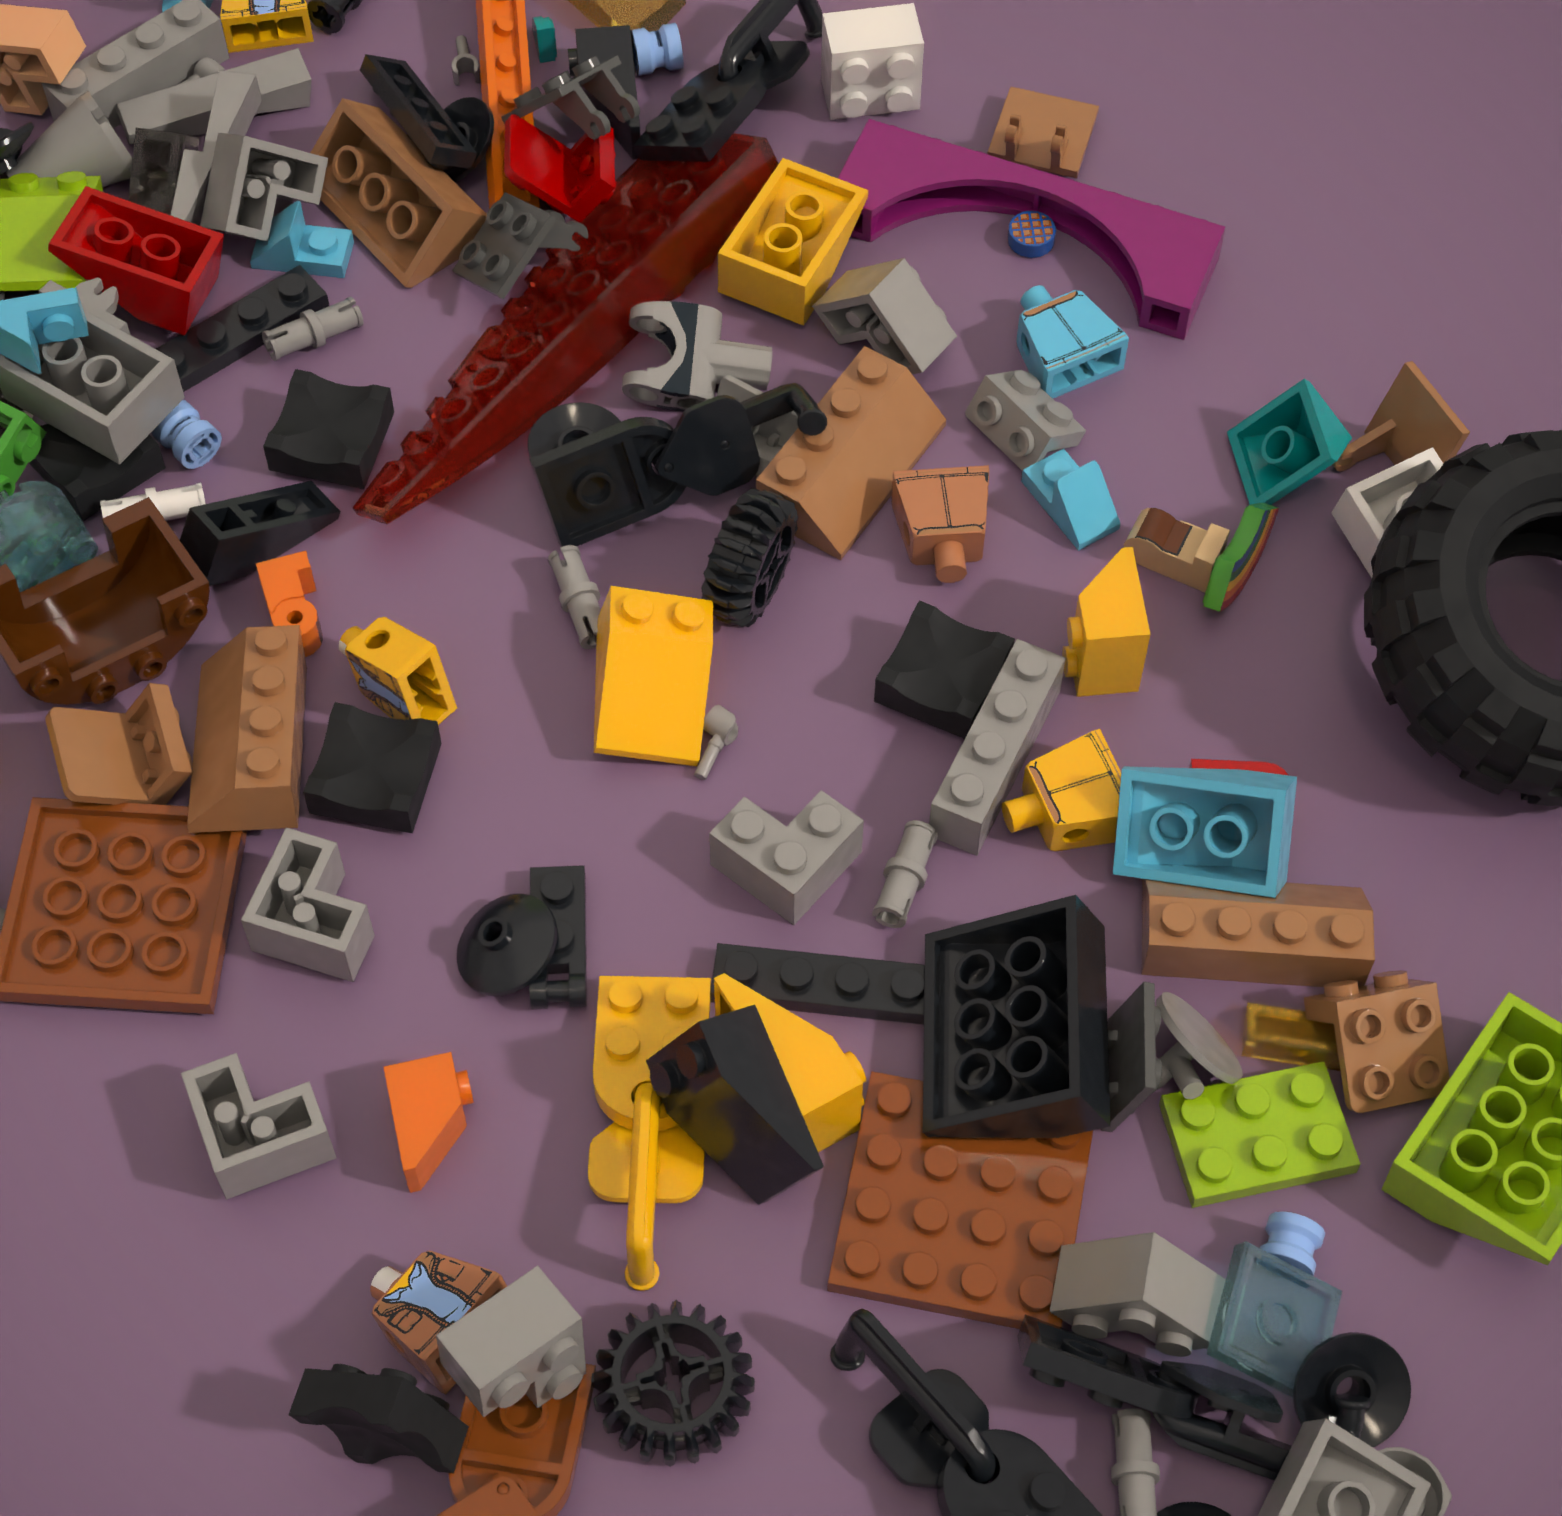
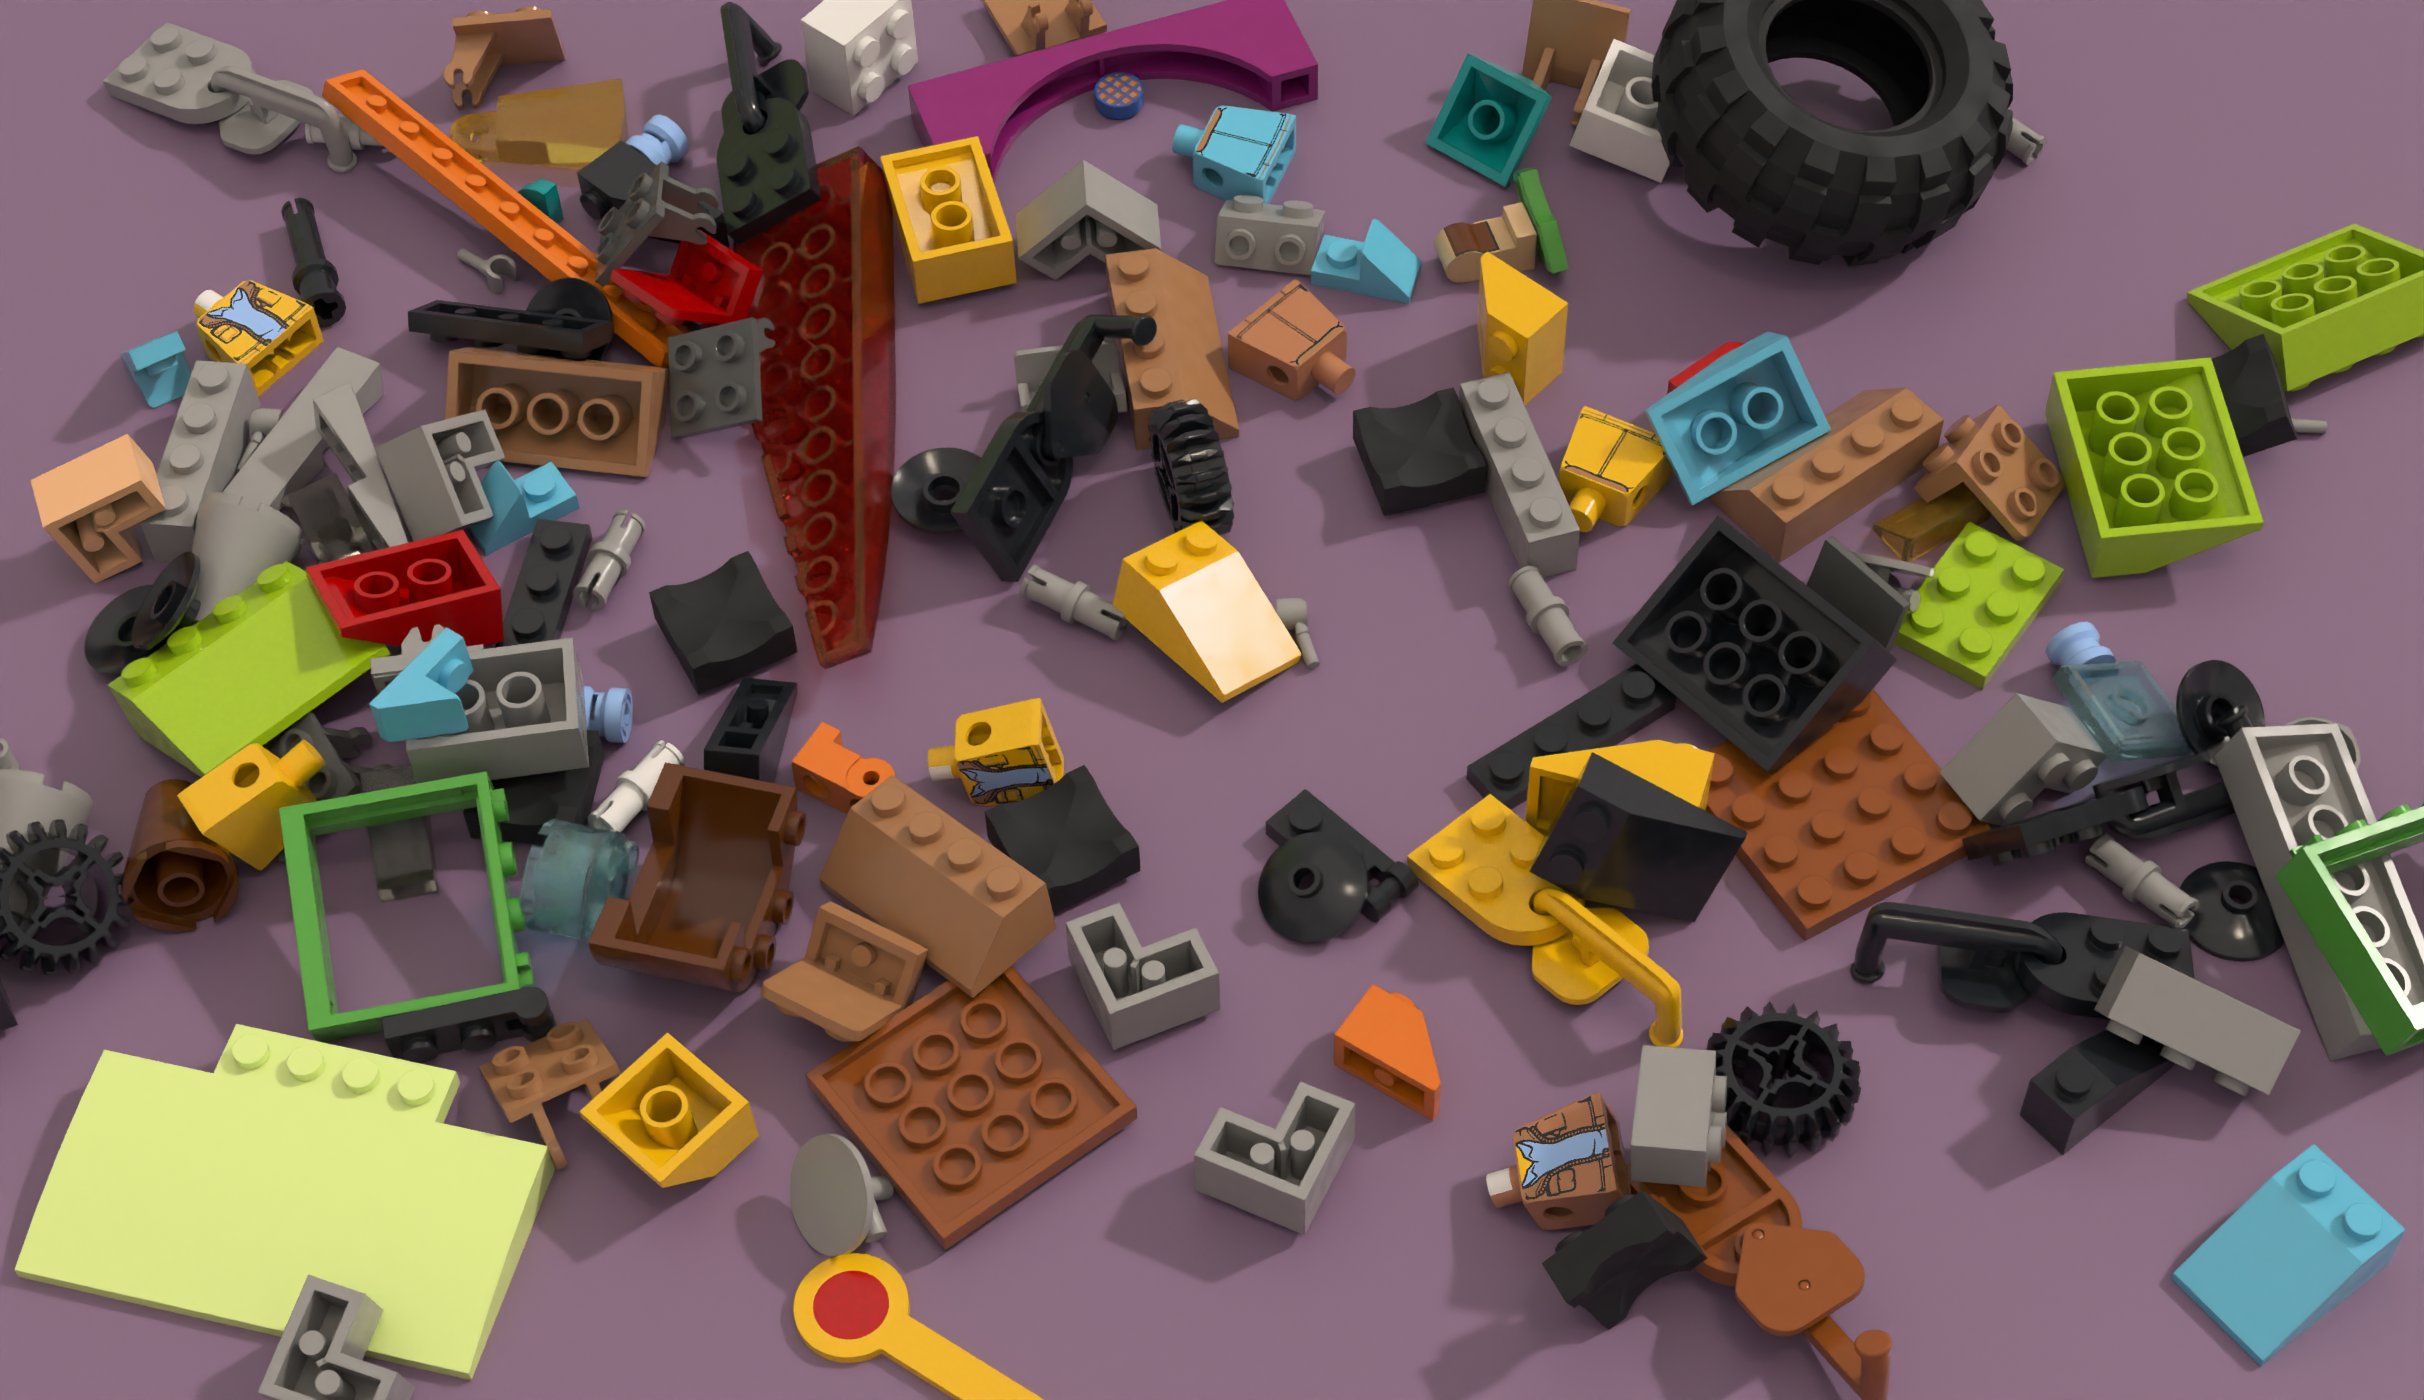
camera: 40 degrees left, 5 degrees down
(696, 355) = (967, 360): light grey connector -> none
(787, 864) = (1450, 673): light grey brick -> none

